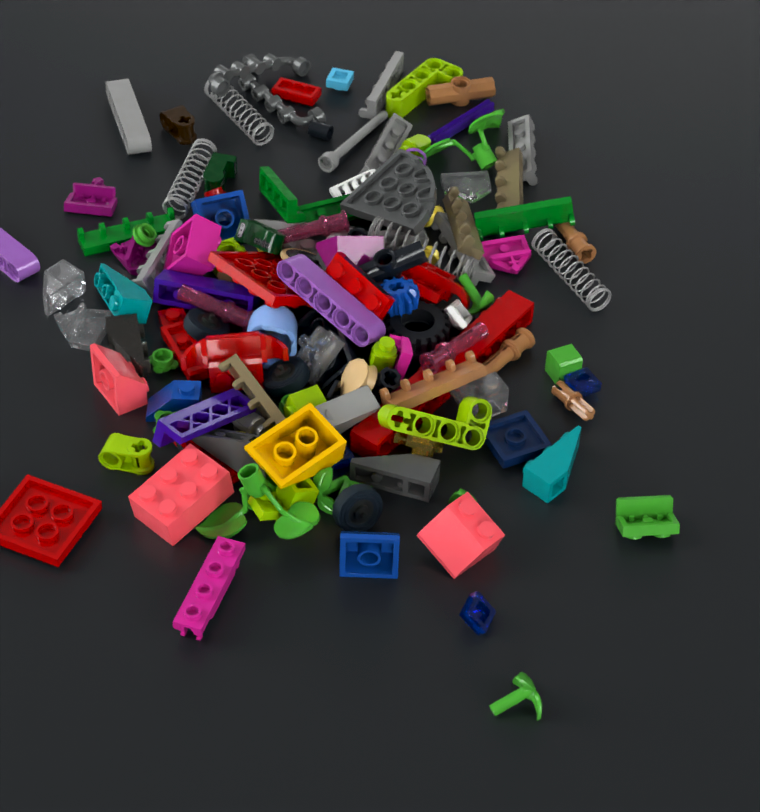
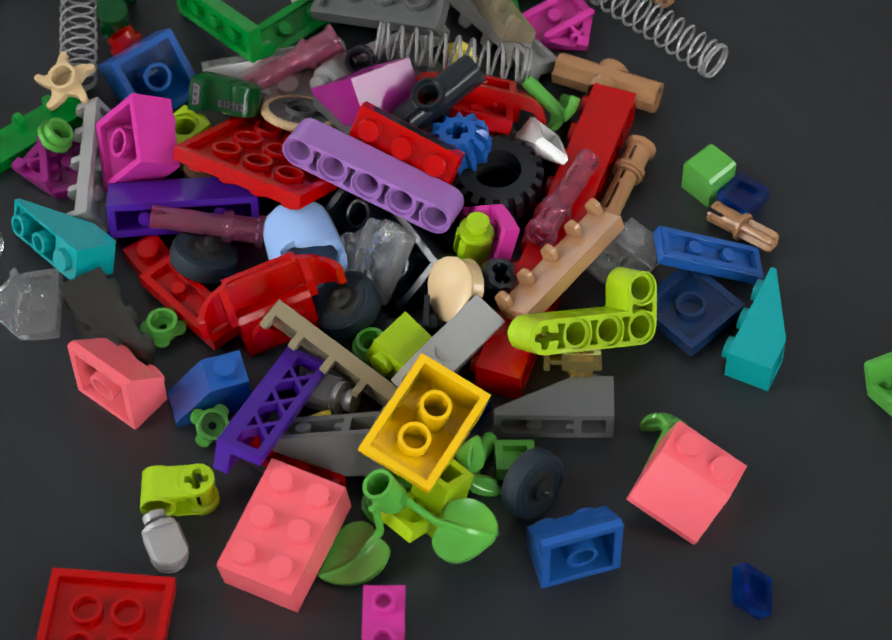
camera: 15 degrees left, 10 degrees up
(105, 480) = (164, 542): none -> light grey arm
(163, 205) = (65, 81): none -> tan animal
(500, 283) = (582, 75): none -> medium nougat piece
(538, 407) = (707, 255): none -> blue tile

